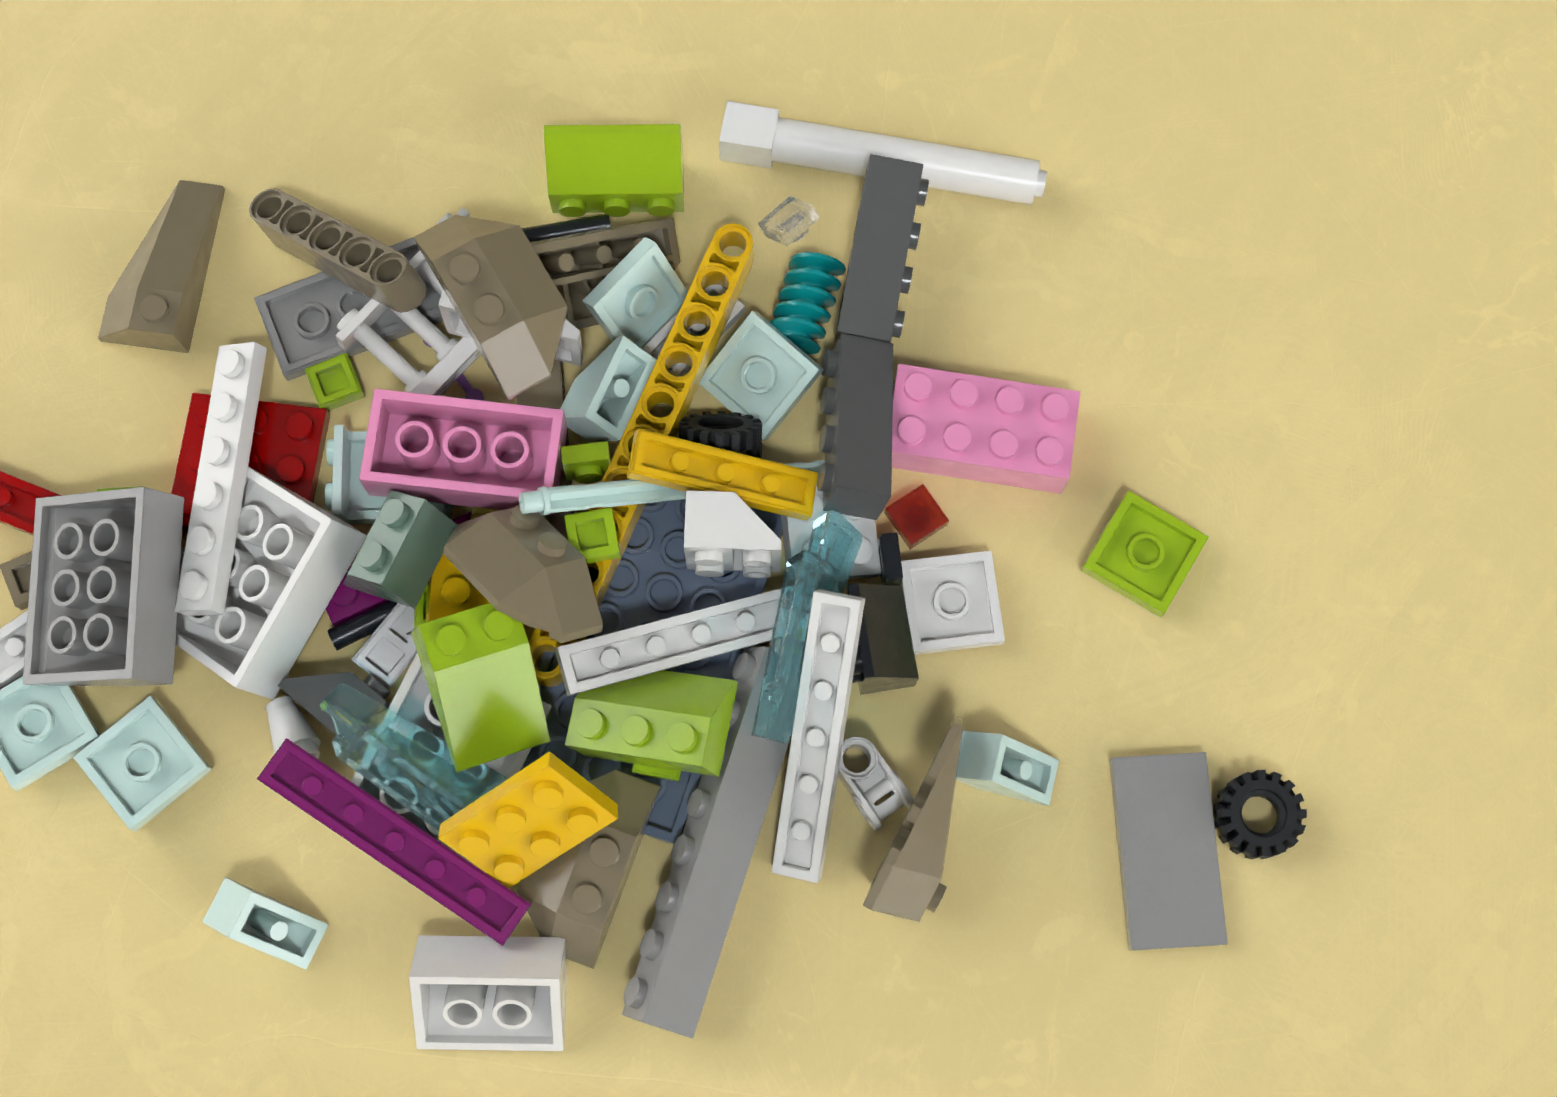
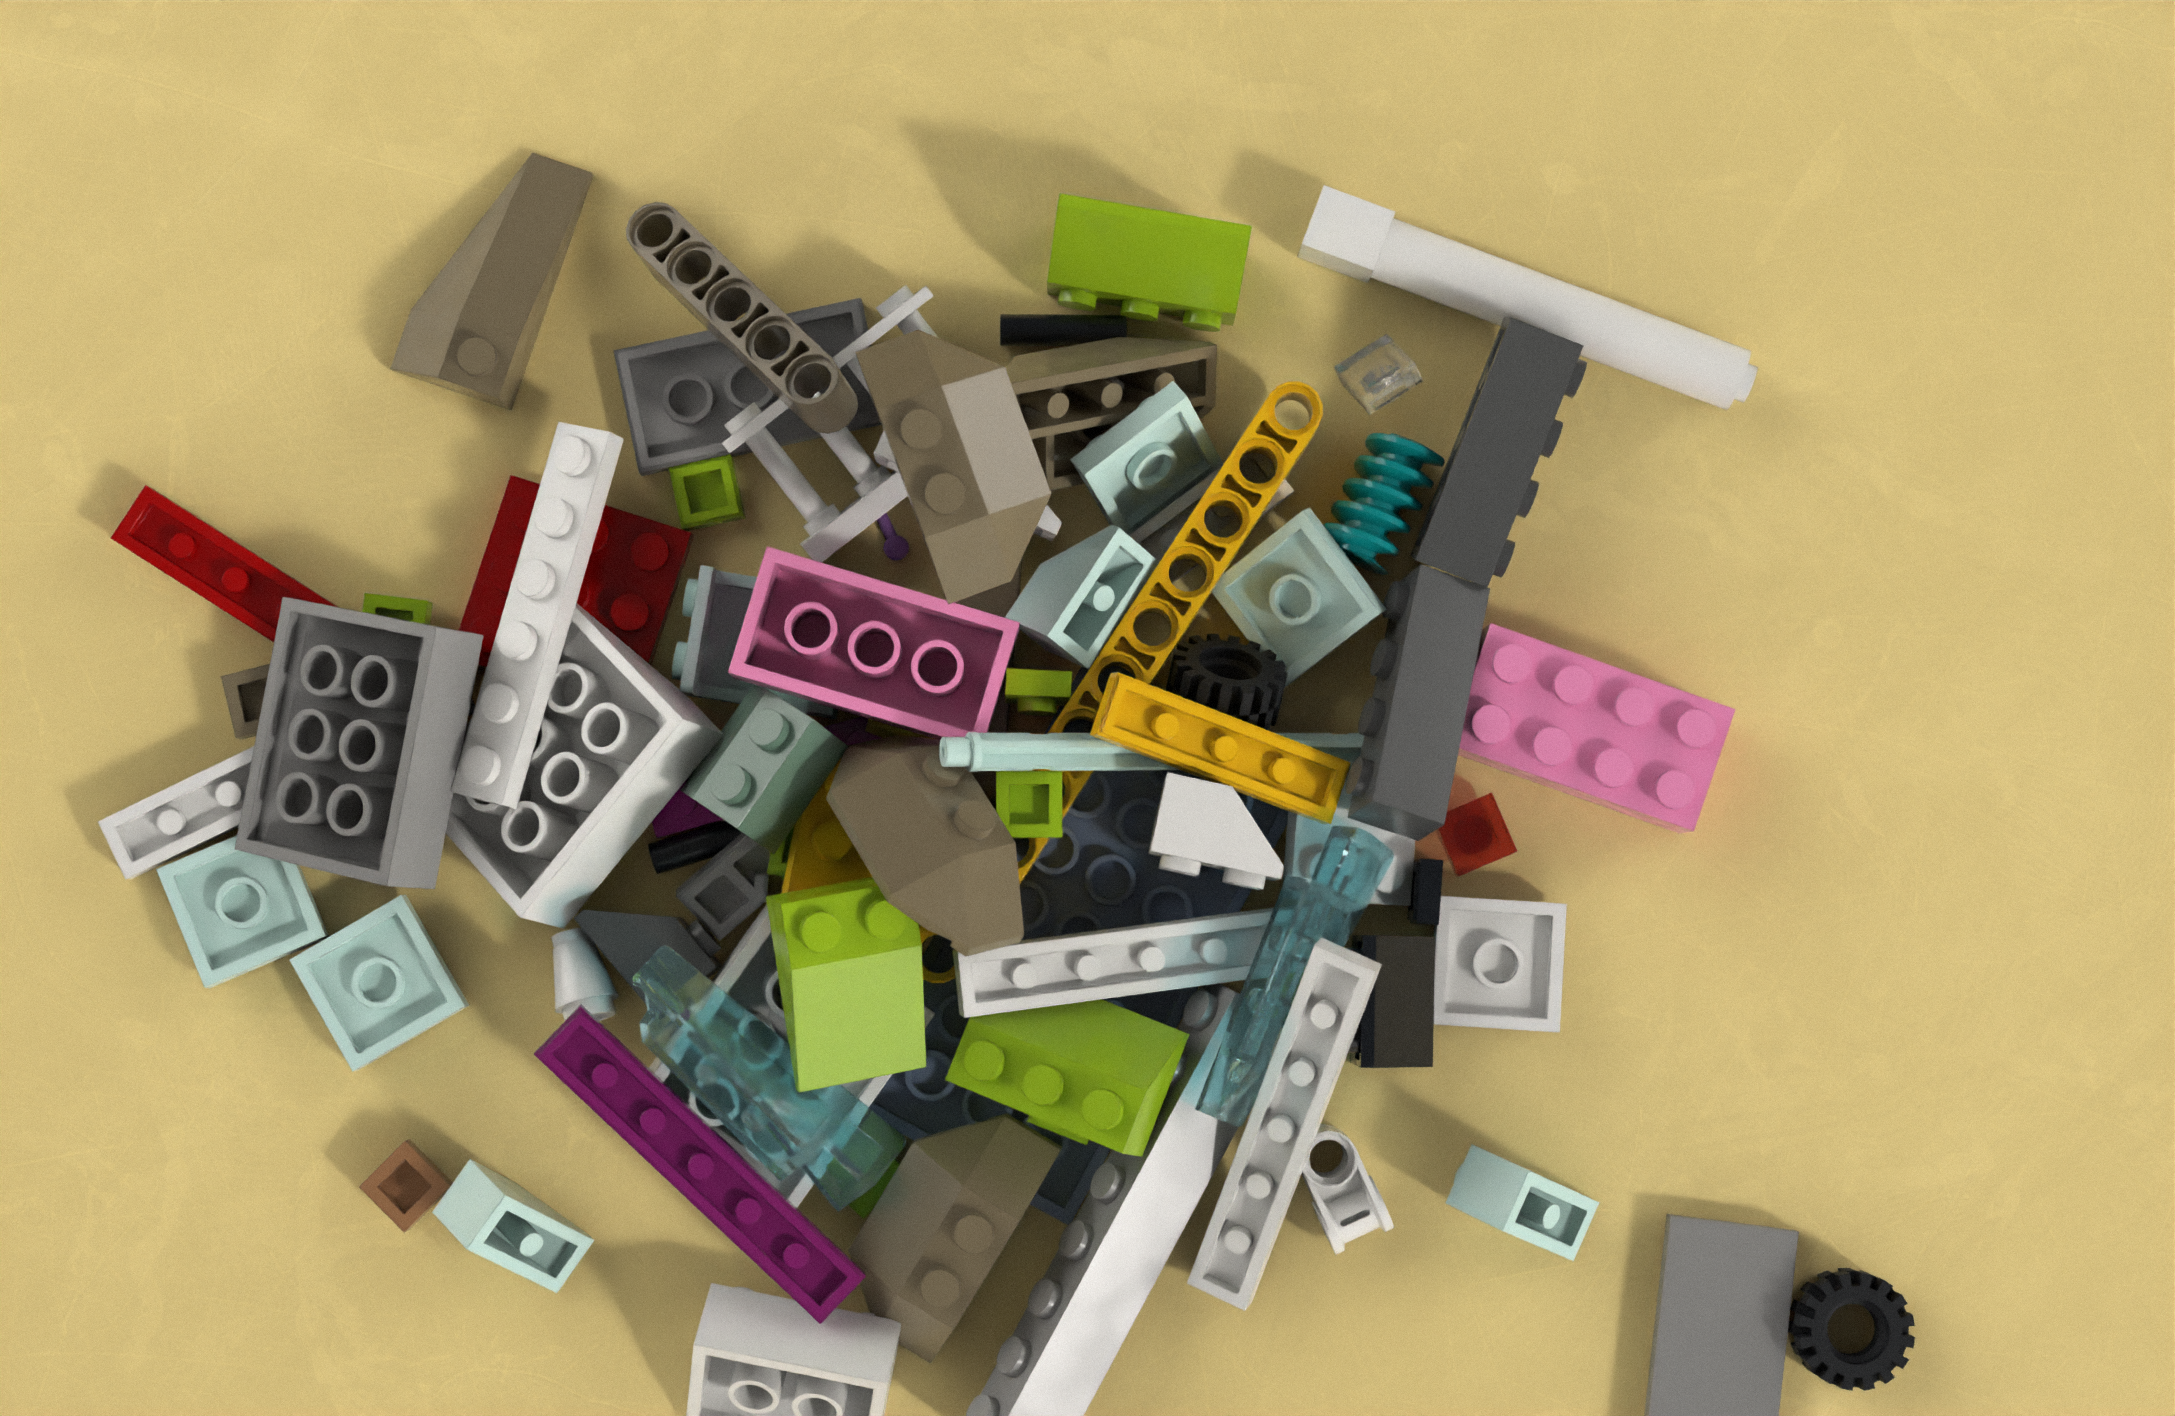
camera: 10 degrees right, 10 degrees up
(180, 908) = (406, 1185): none -> medium nougat plate
(528, 820) = (882, 1178): yellow plate -> none
(916, 859) = (1376, 1311): dark tan wedge -> none
(1144, 554) = (1776, 944): lime plate -> none

